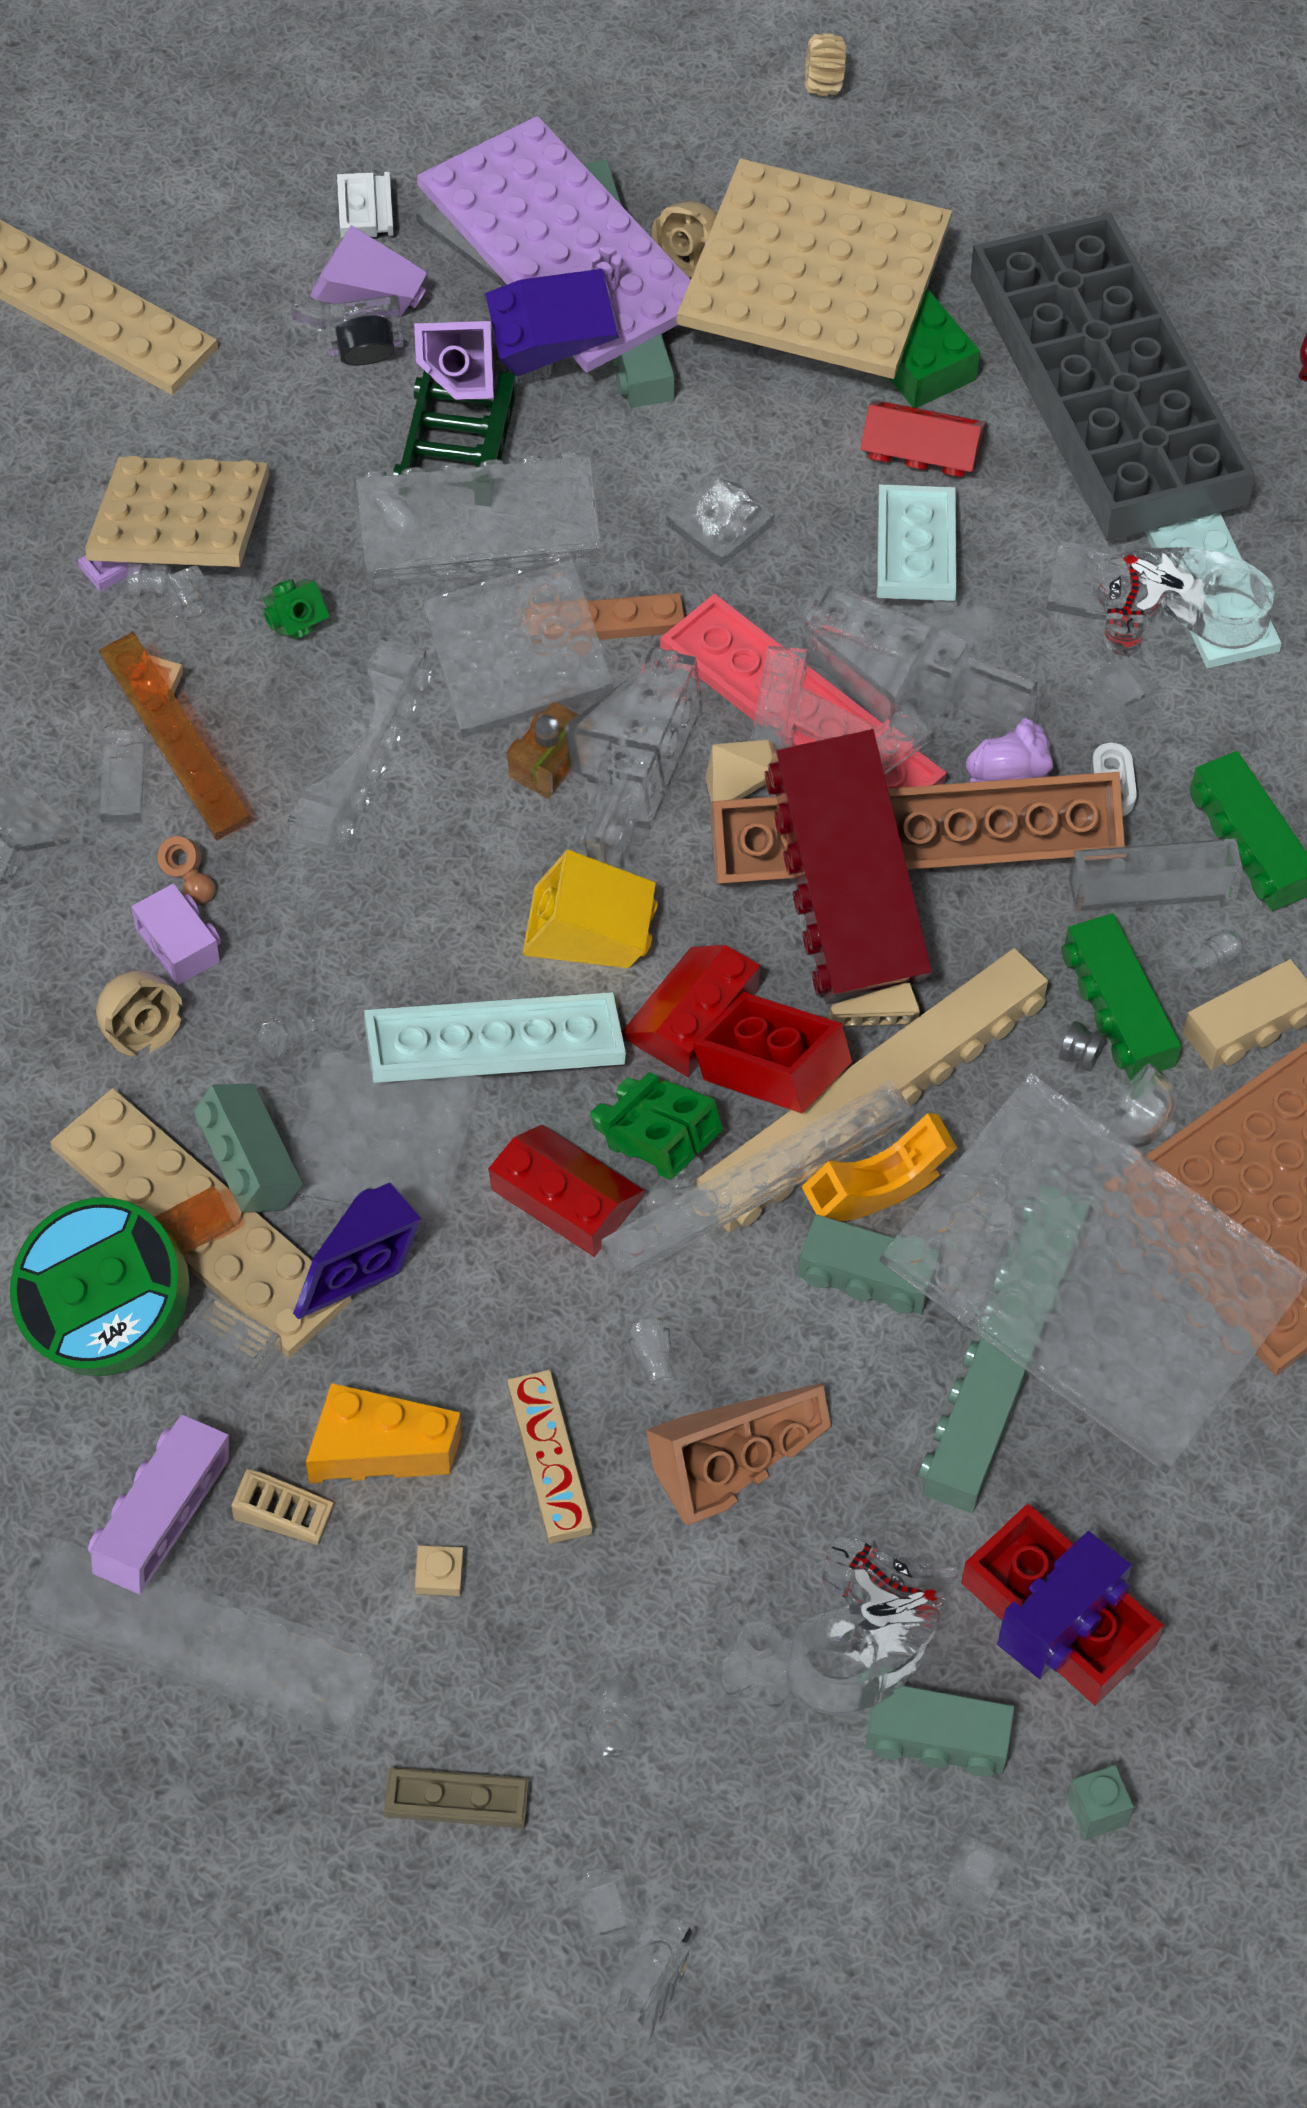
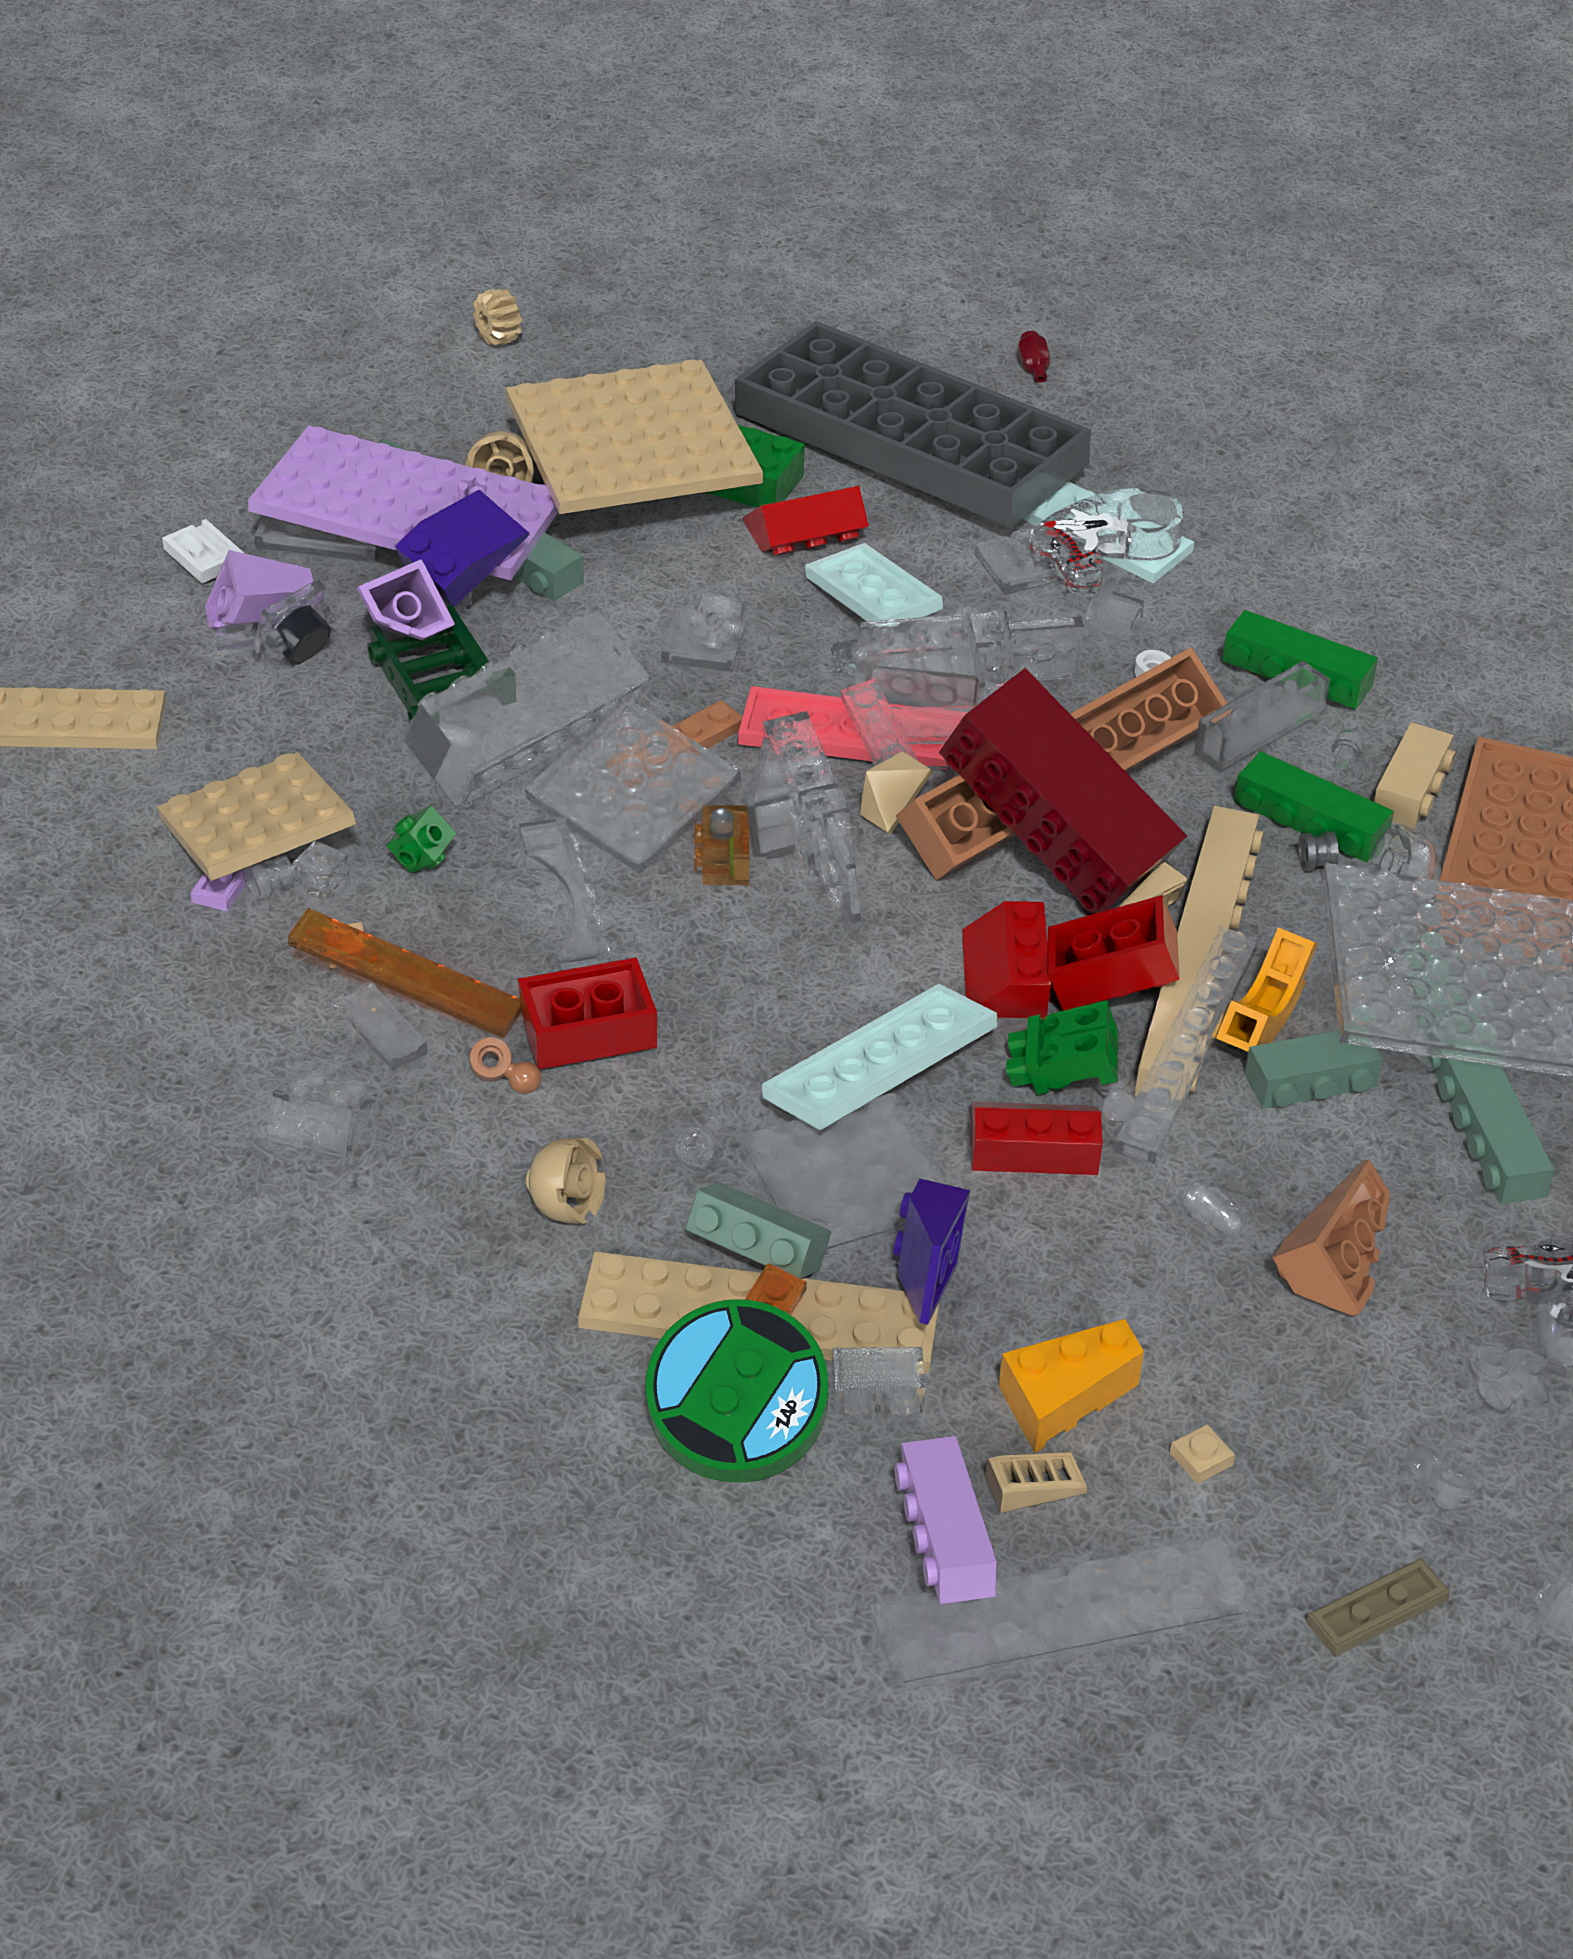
camera: 35 degrees left, 15 degrees down
(176, 933) = (539, 1111): lavender brick -> none
(284, 857) = (588, 1013): none -> red slope
(549, 1457) = (1206, 1327): tan tile -> none
(590, 913) = (867, 938): yellow slope -> none
(1012, 756) = (1089, 681): lavender hair -> none

